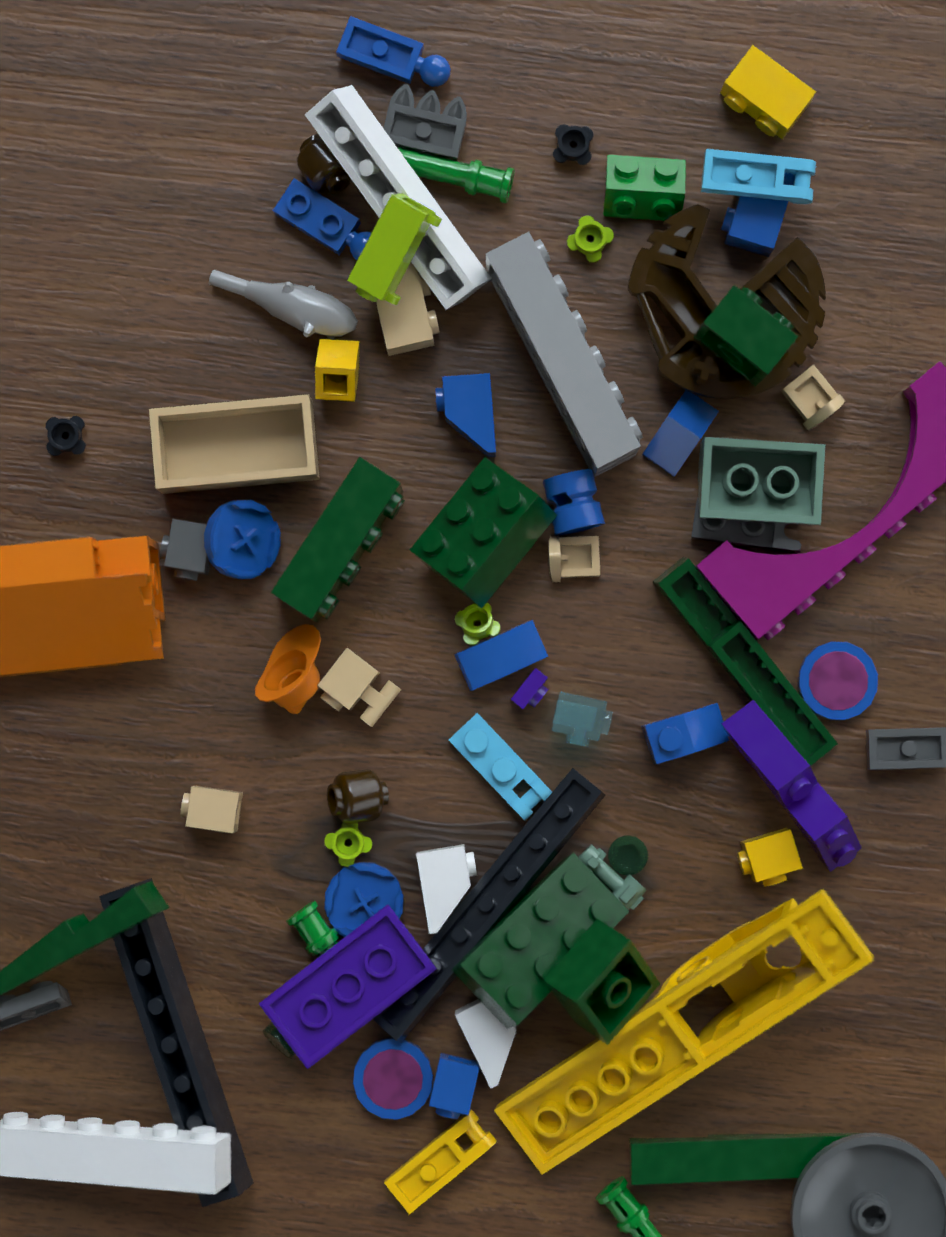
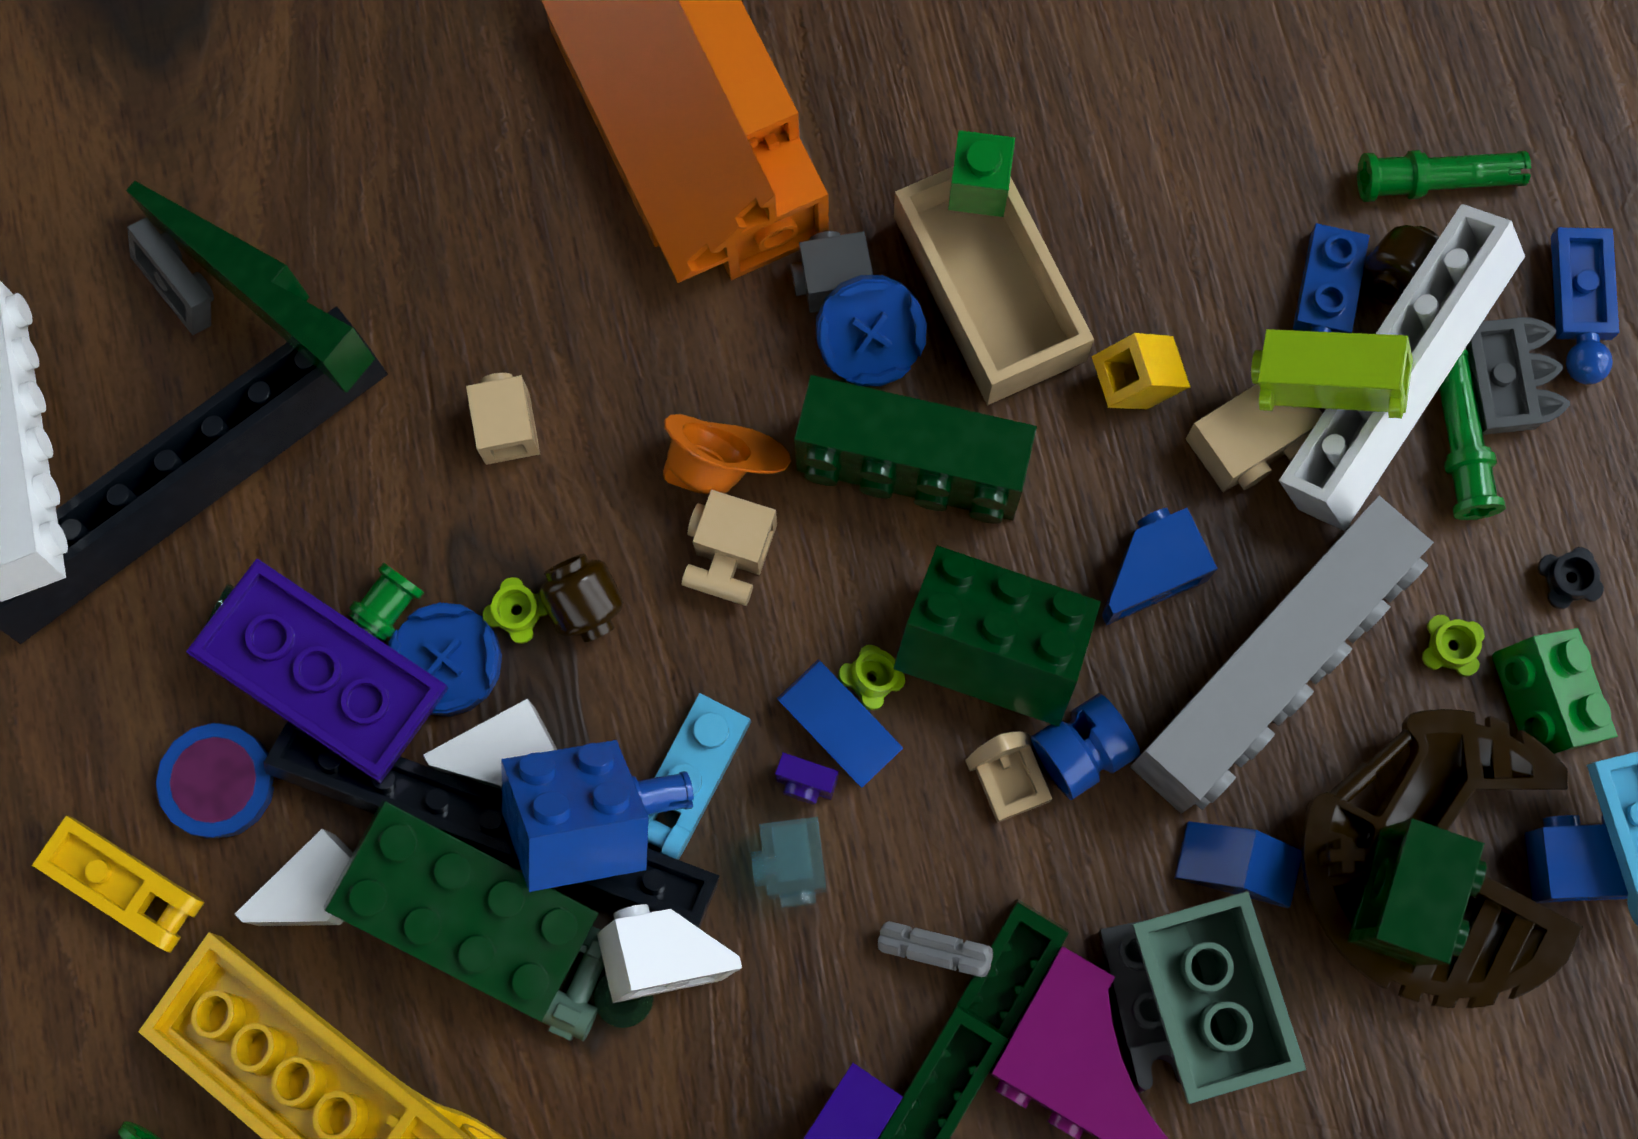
camera: 70 degrees right, 10 degrees down
(57, 427) = (927, 61): black plate -> none
(170, 427) = (981, 173): none -> green brick
(263, 128) = (1417, 173): none -> green pin
(294, 304) = (1205, 291): light grey piece -> none
(454, 1085) = (225, 862): blue brick -> none
(506, 842) = (582, 813): none -> blue brick
(602, 981) = (424, 1012): dark green brick -> none
(611, 823) = (660, 954): none -> white slope
(668, 646) = (935, 949): none -> light grey axle
(685, 733) = (821, 1017): blue slope -> none
(813, 397) = (1363, 1035): tan tile -> none

